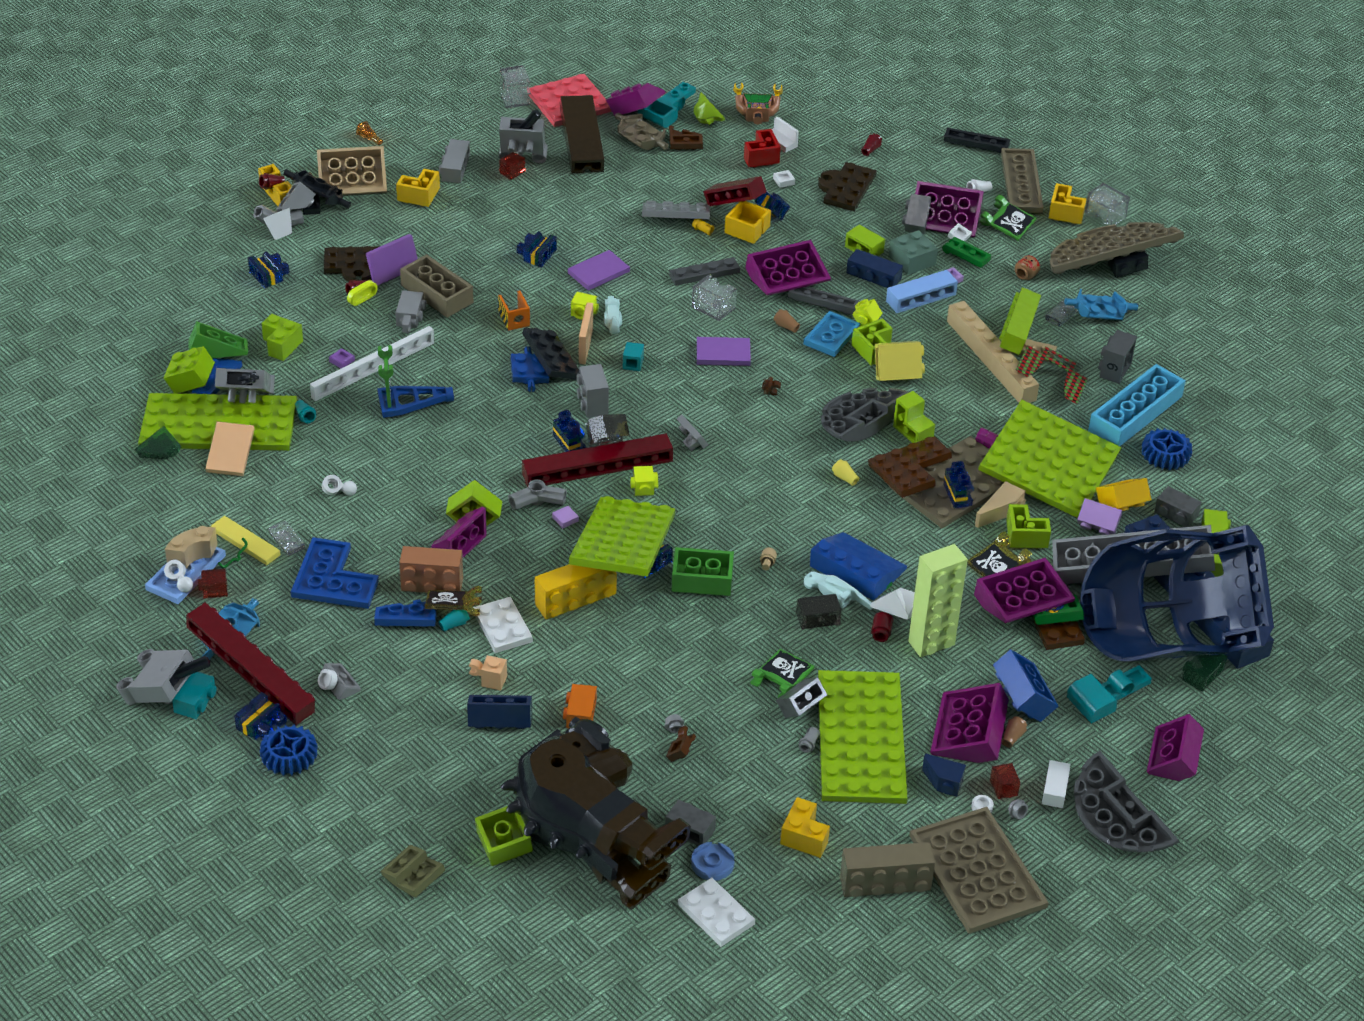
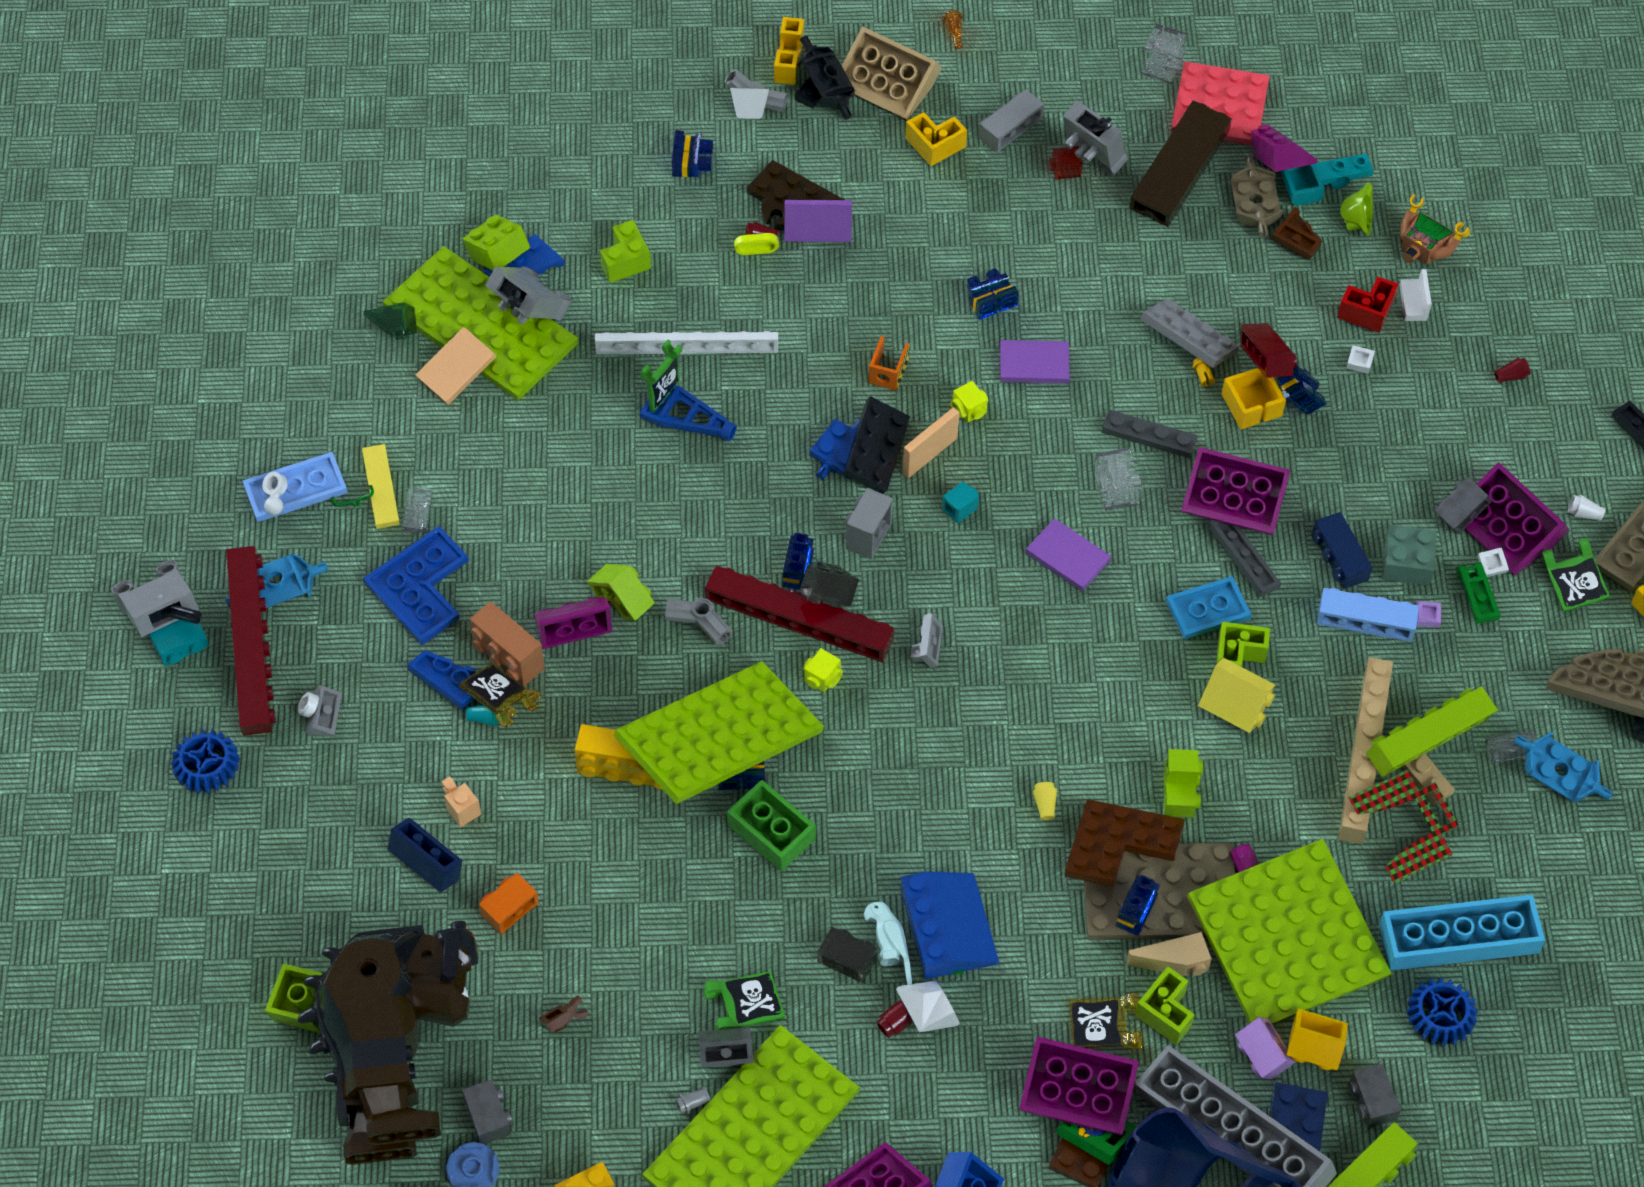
camera: 40 degrees right, 15 degrees up
(192, 545) = (311, 465): tan brick -> none
(213, 583) = (305, 520): clear red brick -> none
(217, 342) = (554, 223): bright green slope -> none
(259, 716) = (223, 710): clear blue hips -> none
(268, 180) = (781, 41): dark red cone -> none
(297, 197) = (788, 81): light grey slope -> none
(305, 412) = (568, 364): teal cone -> none
(341, 358) = (666, 316): medium lavender tile -> none
(349, 487) = (529, 485): white plate -> none
(410, 310) = (783, 297): light grey hinge -> none
(412, 871) = (198, 975): olive slope -> none
(439, 285) = (835, 282): dark tan brick -> none
(503, 625) = (528, 751): white plate -> none
(565, 517) = (706, 661): lavender tile -> none
(612, 315) = (989, 434): light aqua animal -> none
(673, 723) = (580, 985): light grey plate -> none
(768, 558) = (861, 852): tan cylinder -> none
(770, 386) = (1072, 635): reddish brown plate -> none
(786, 321) = (1173, 558): medium nougat cone -> none
(846, 186) = (1428, 412): dark brown plate -> none
(860, 414) = (1130, 735): dark grey brick -> none
(864, 240) = (1367, 506): lime brick -> none
(867, 311) = (1269, 606): neon yellow brick -> none
(937, 600) = (938, 1041): yellowish green brick -> none
(1027, 267) = (1528, 659): medium nougat head -> none
(1117, 356) = (1503, 852): dark grey brick -> none

